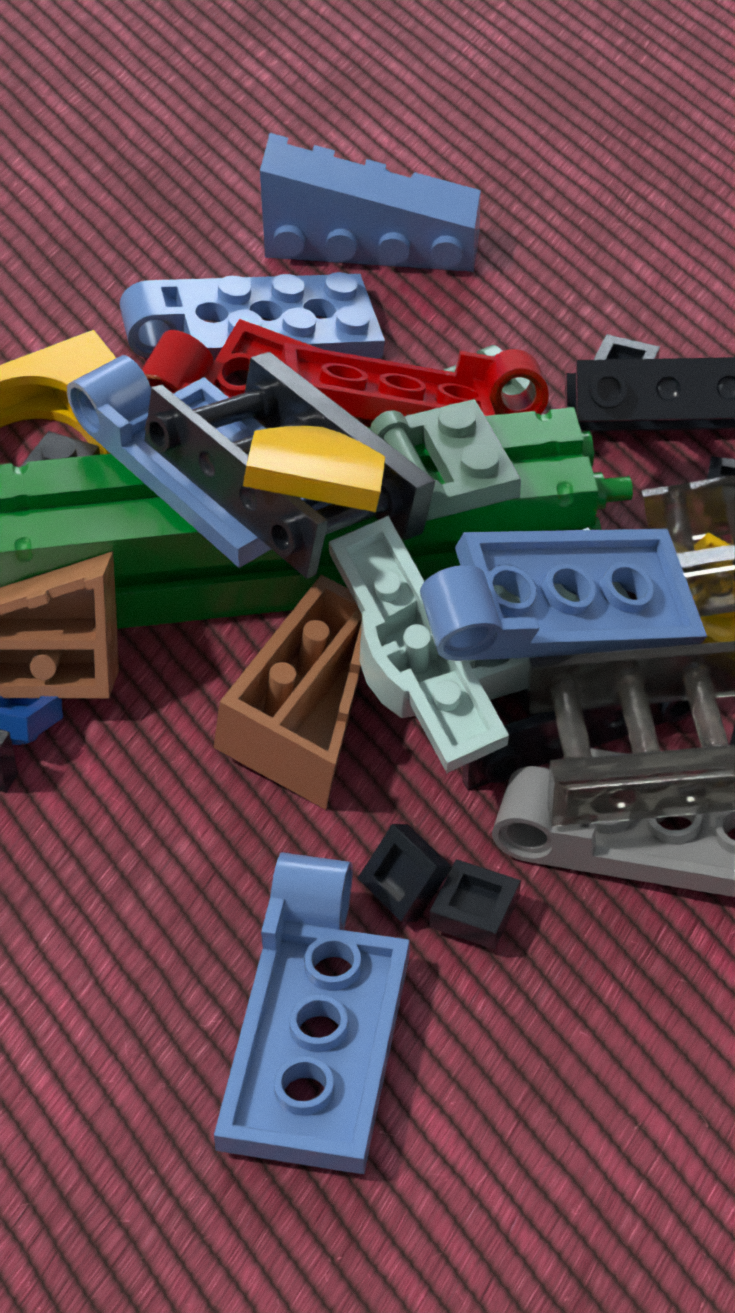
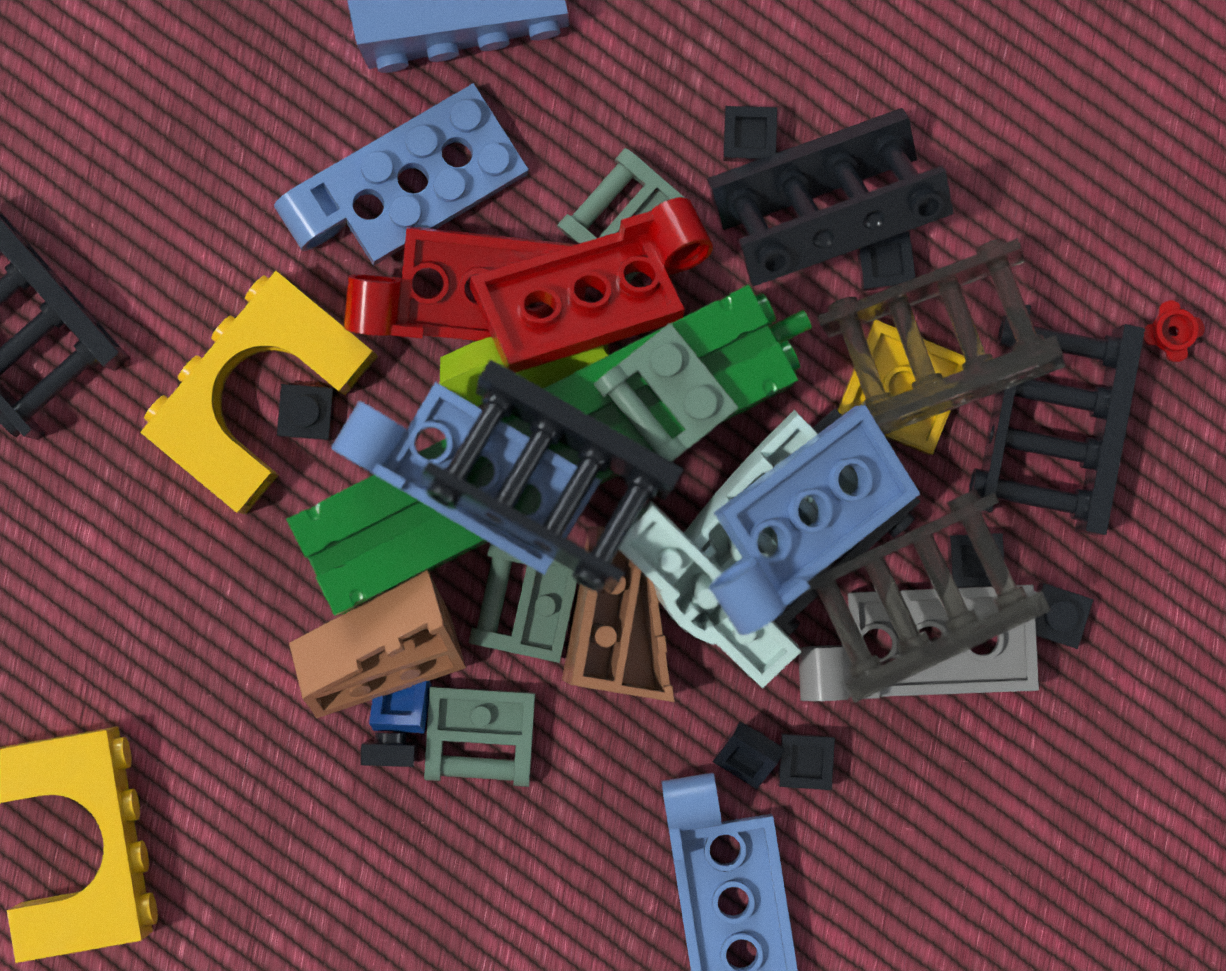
camera: 20 degrees left, 40 degrees up
(96, 754) = (479, 718): none -> sand green plate
(211, 675) = (541, 611): none -> sand green plate
(315, 466) = (592, 510): yellow slope -> none

